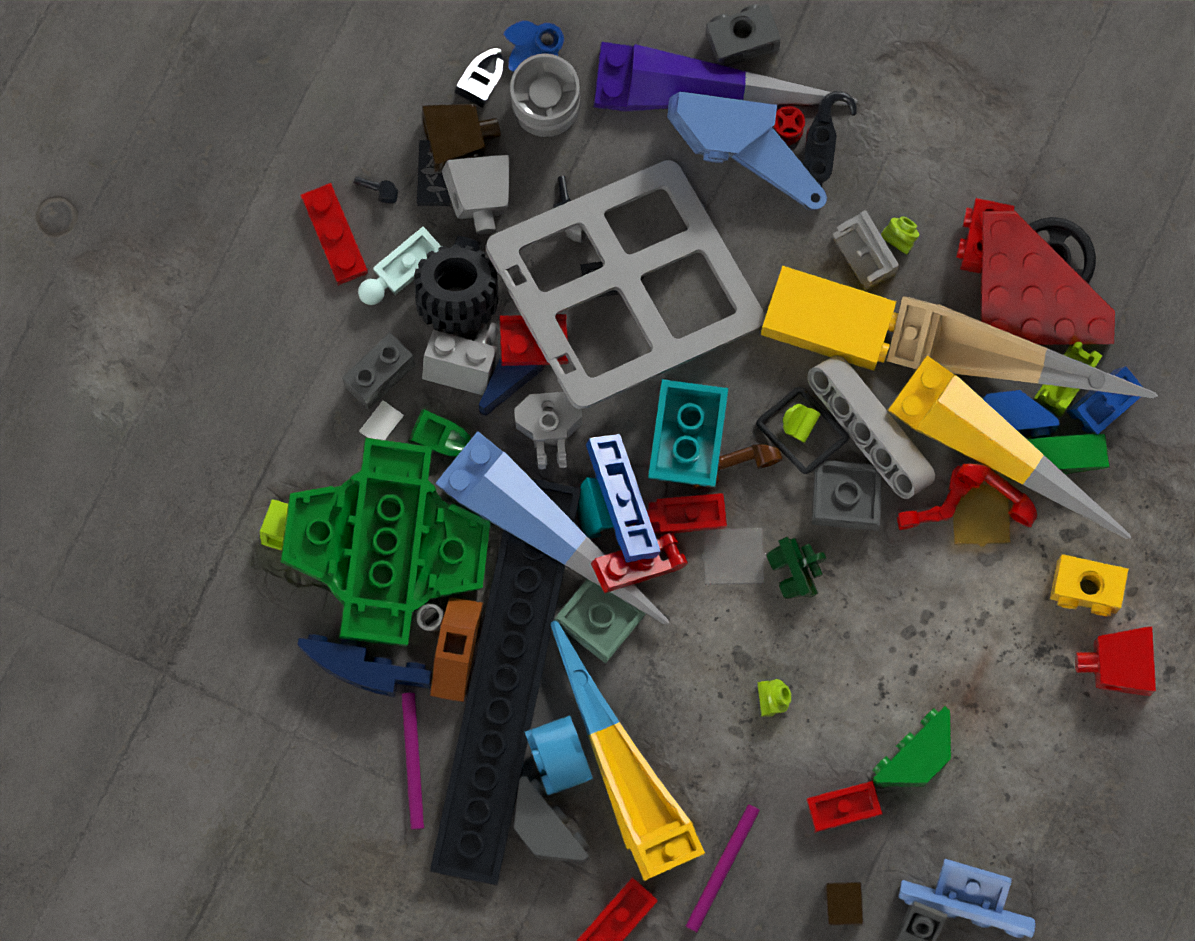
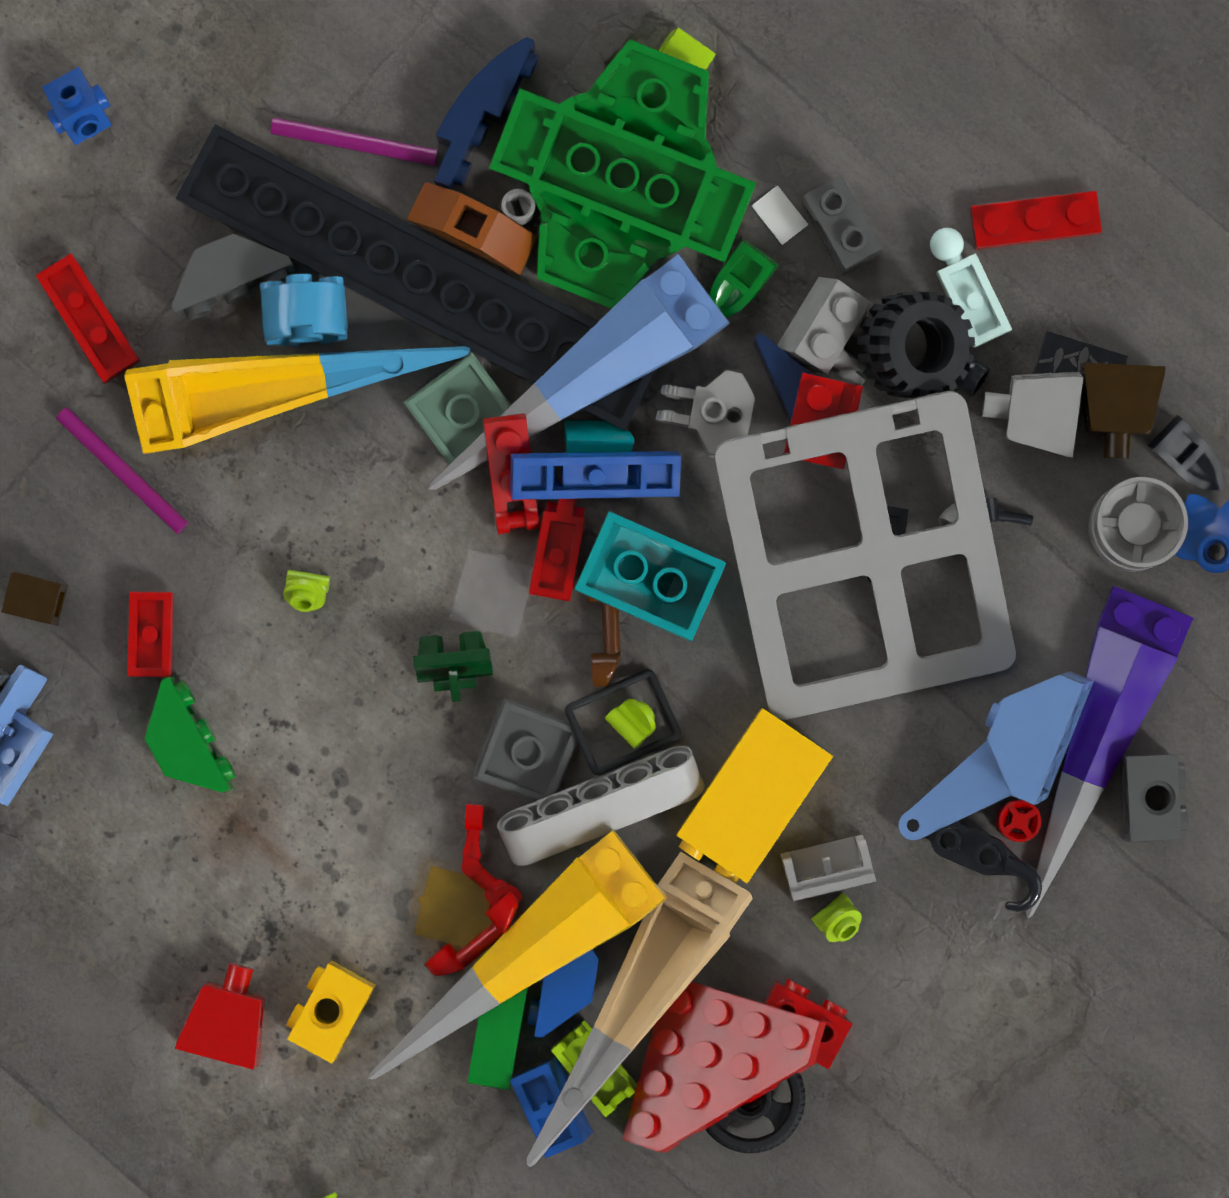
camera: 105 degrees right, 10 degrees up
(387, 190) = (1070, 298): black hand -> none

